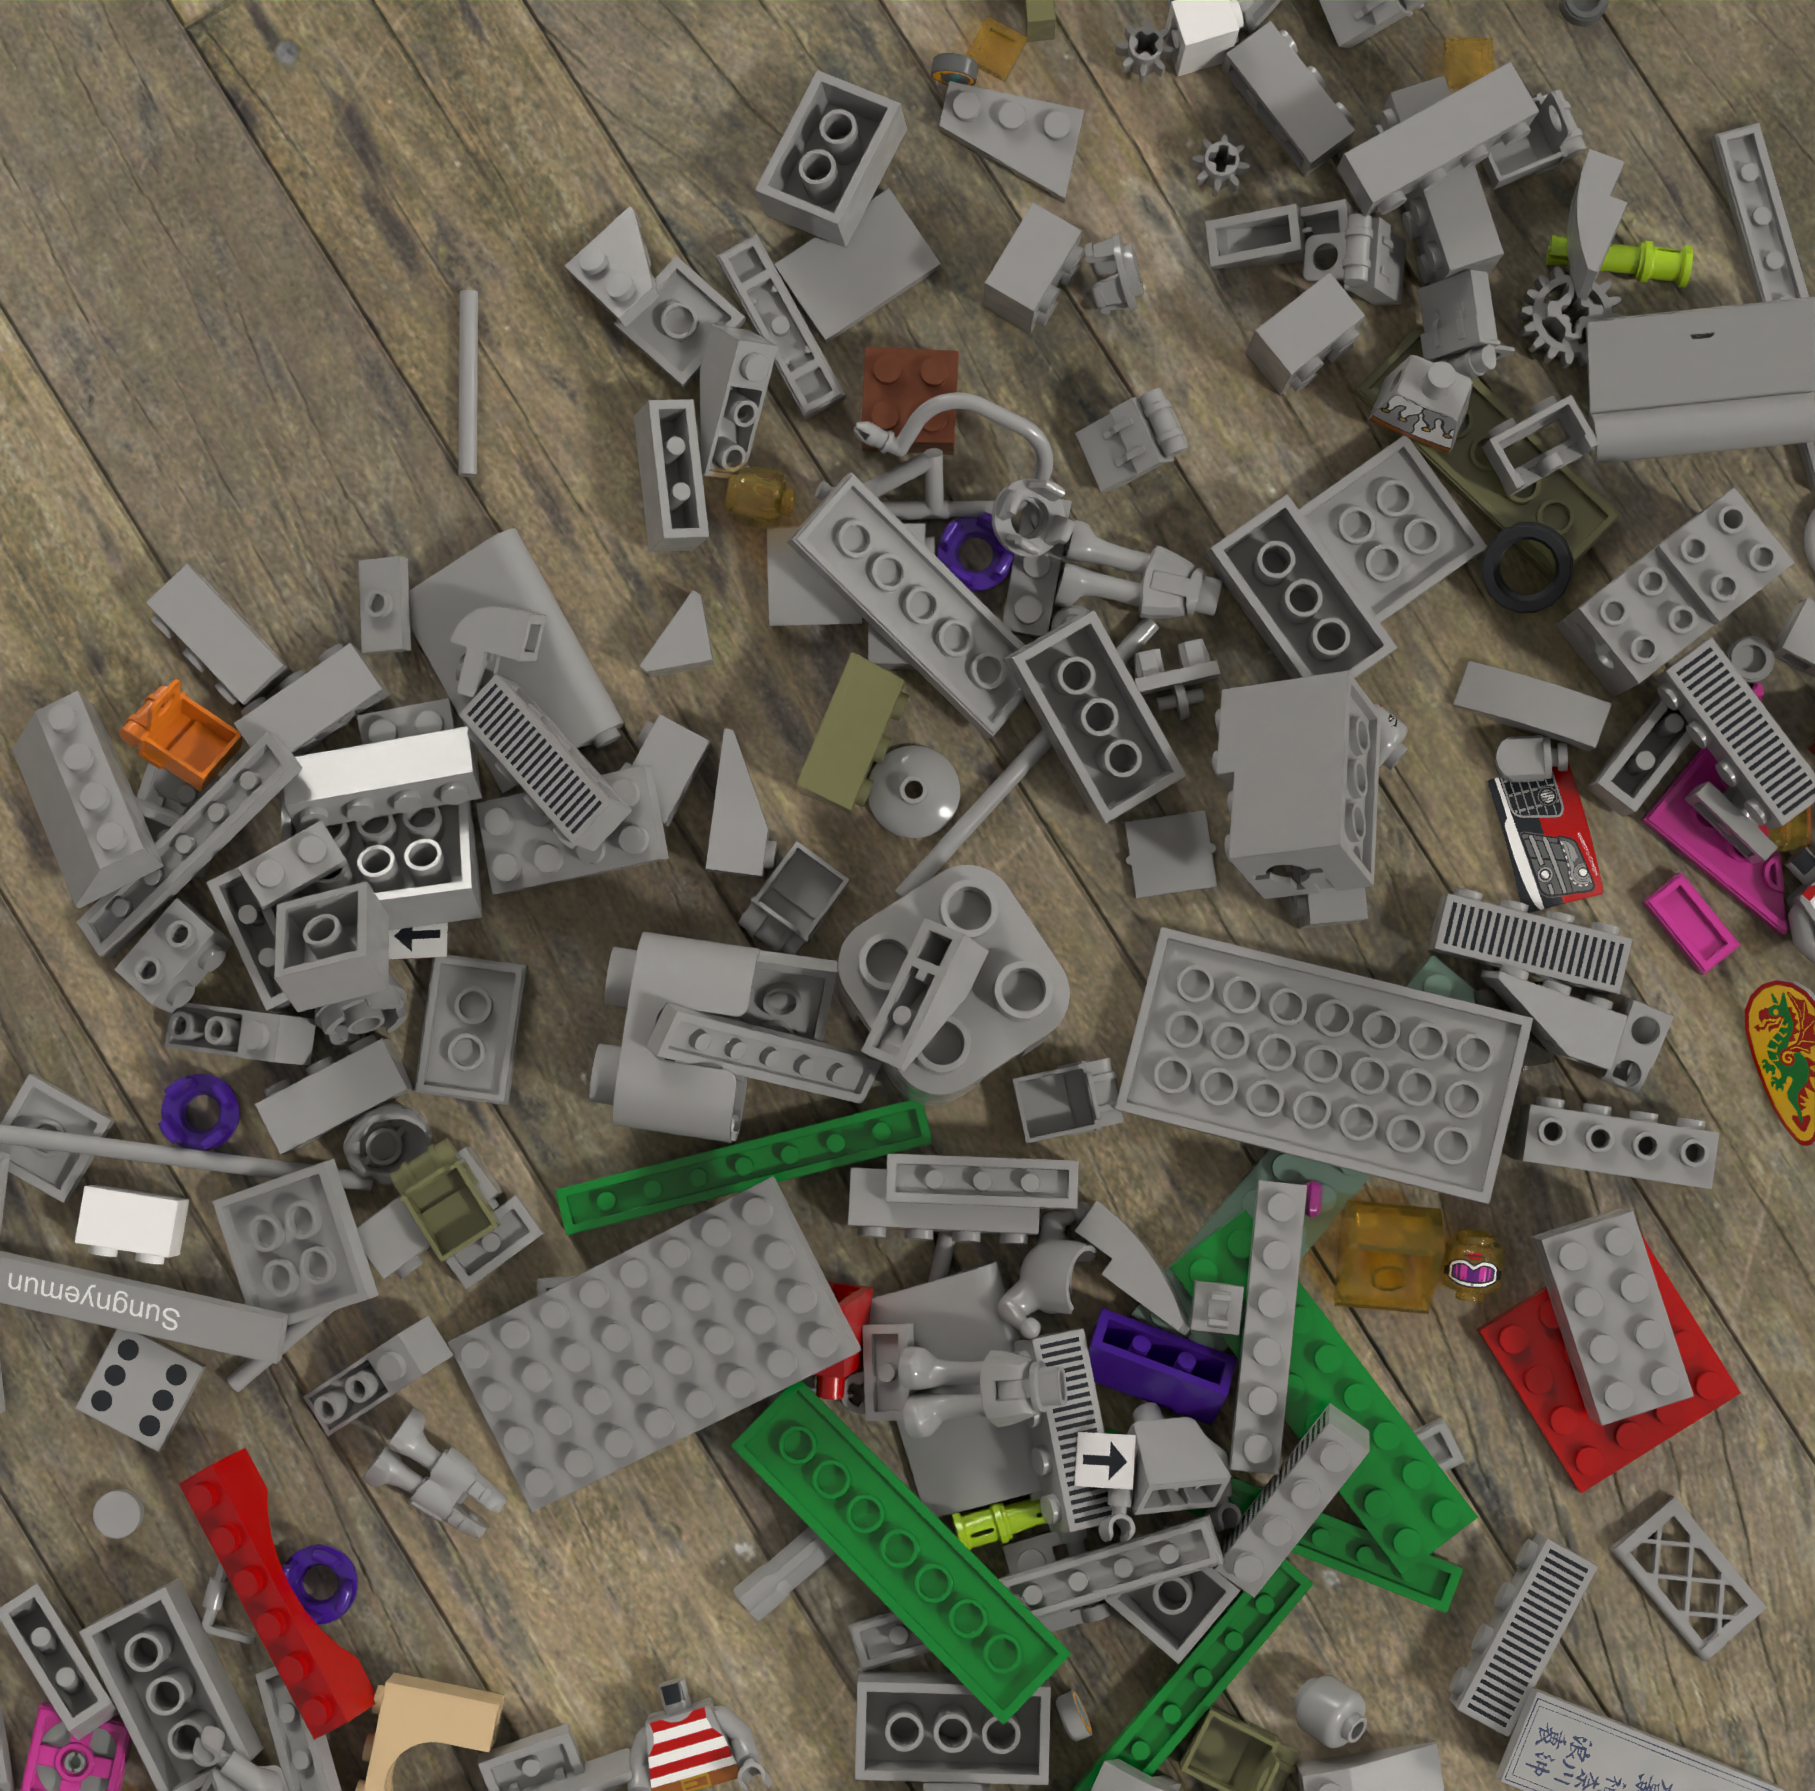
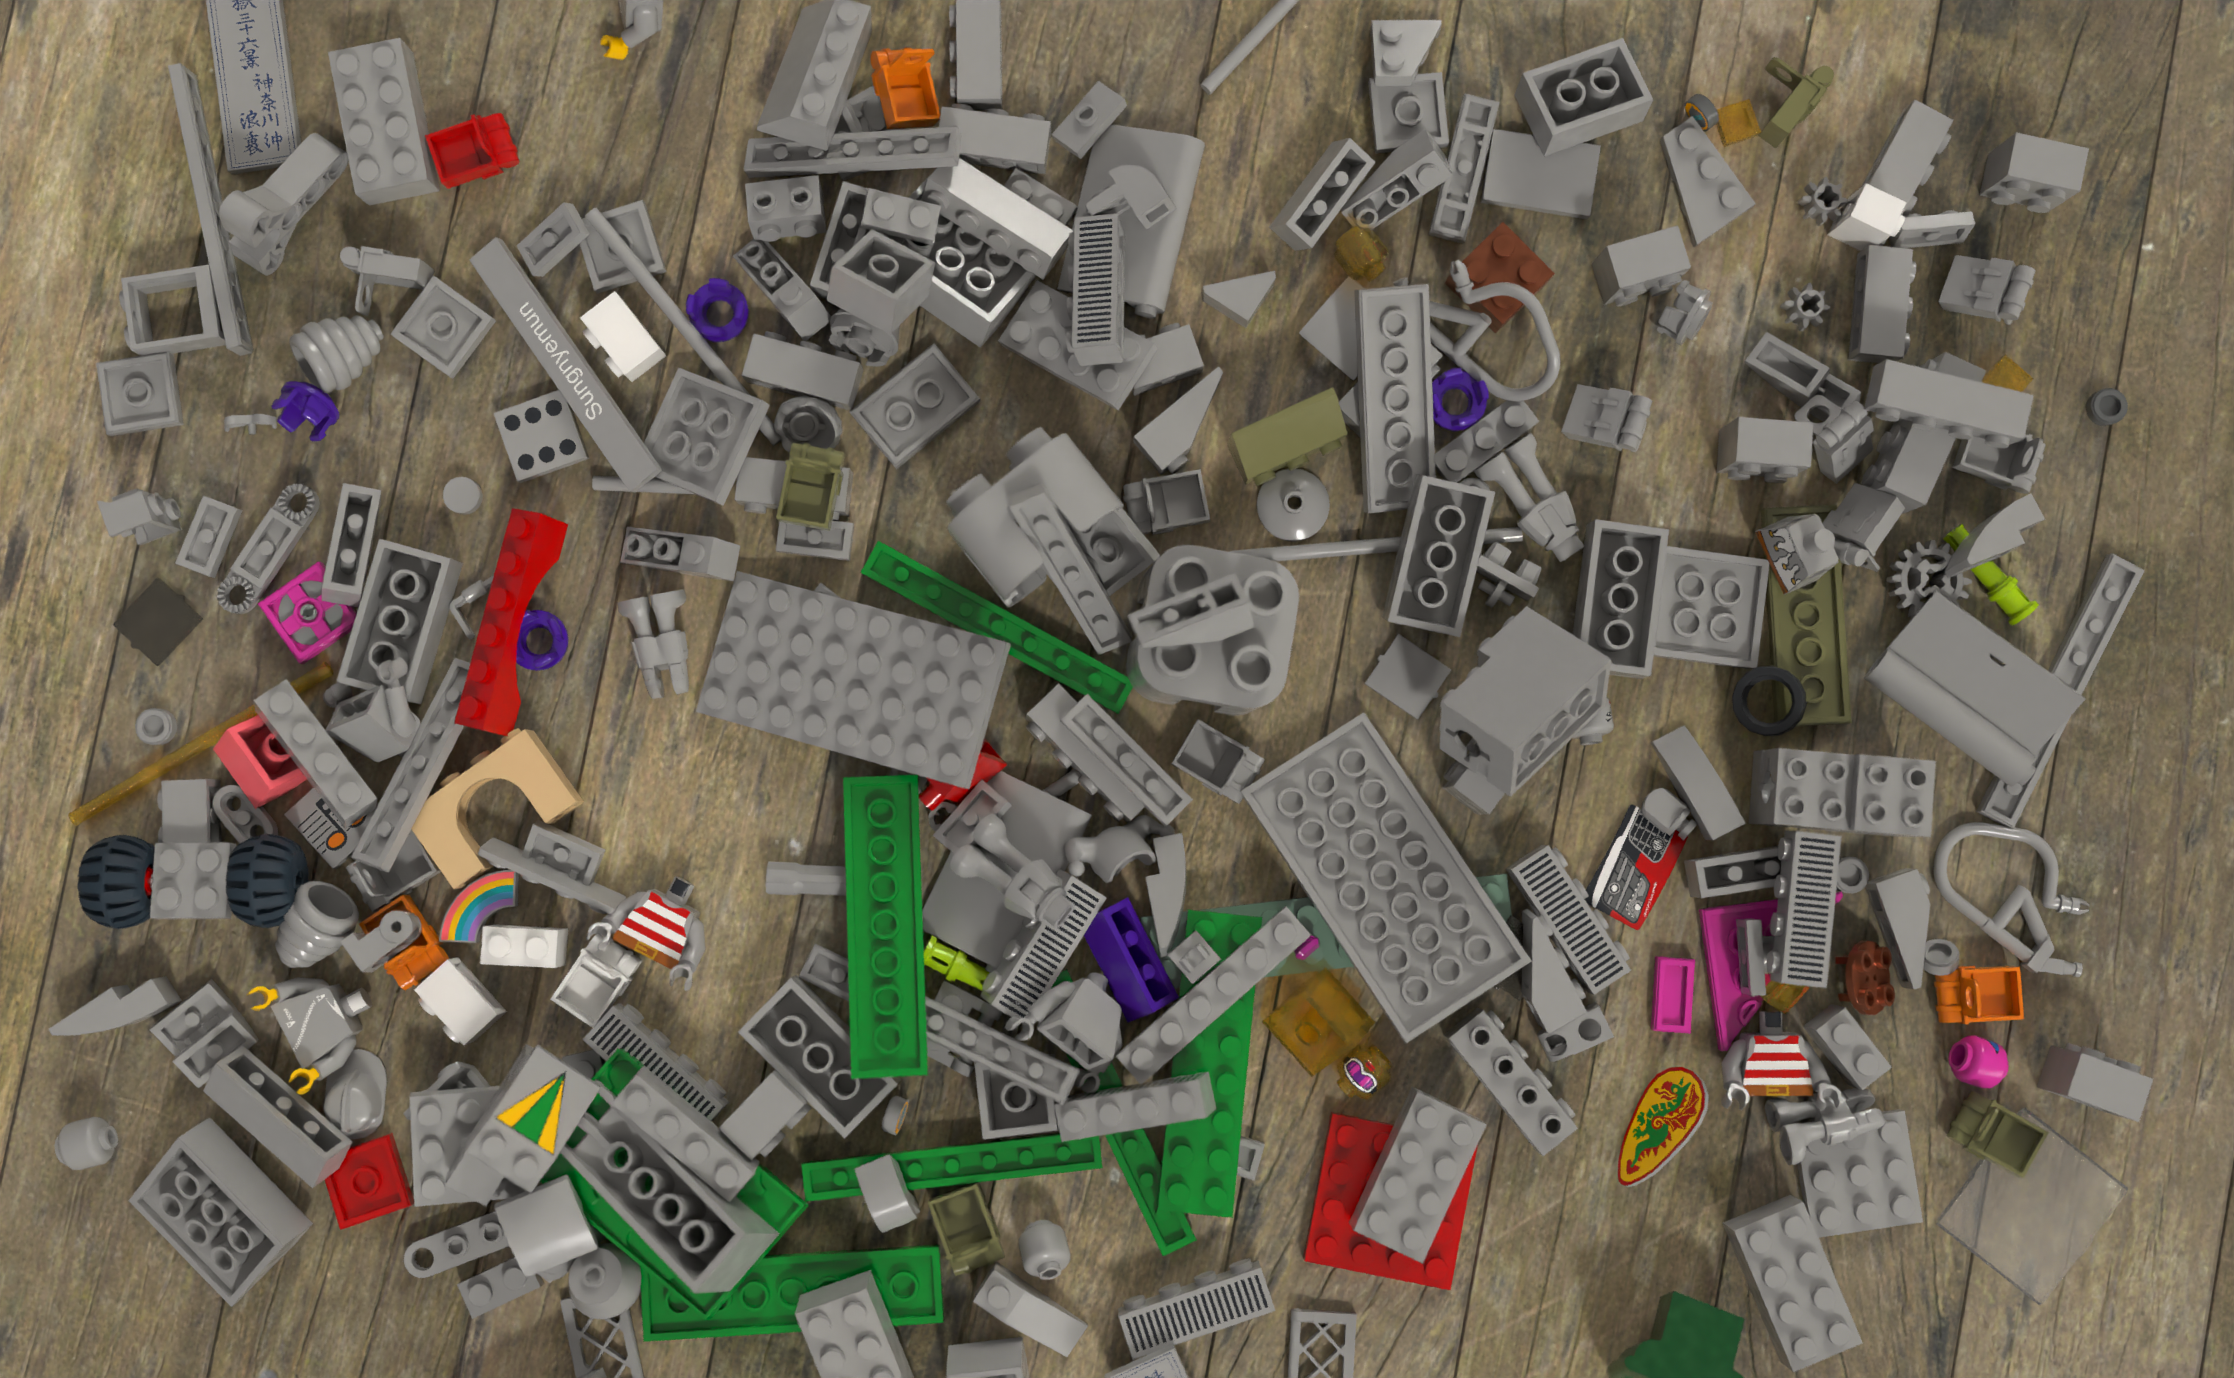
camera: 35 degrees right, 0 degrees up
(418, 942) = (930, 328): white sticker -> none
(1051, 526) = (1517, 422): light grey piece -> none
(1105, 1460) = (1049, 982): white sticker -> none
(1574, 425) = (1861, 621): light grey window -> none

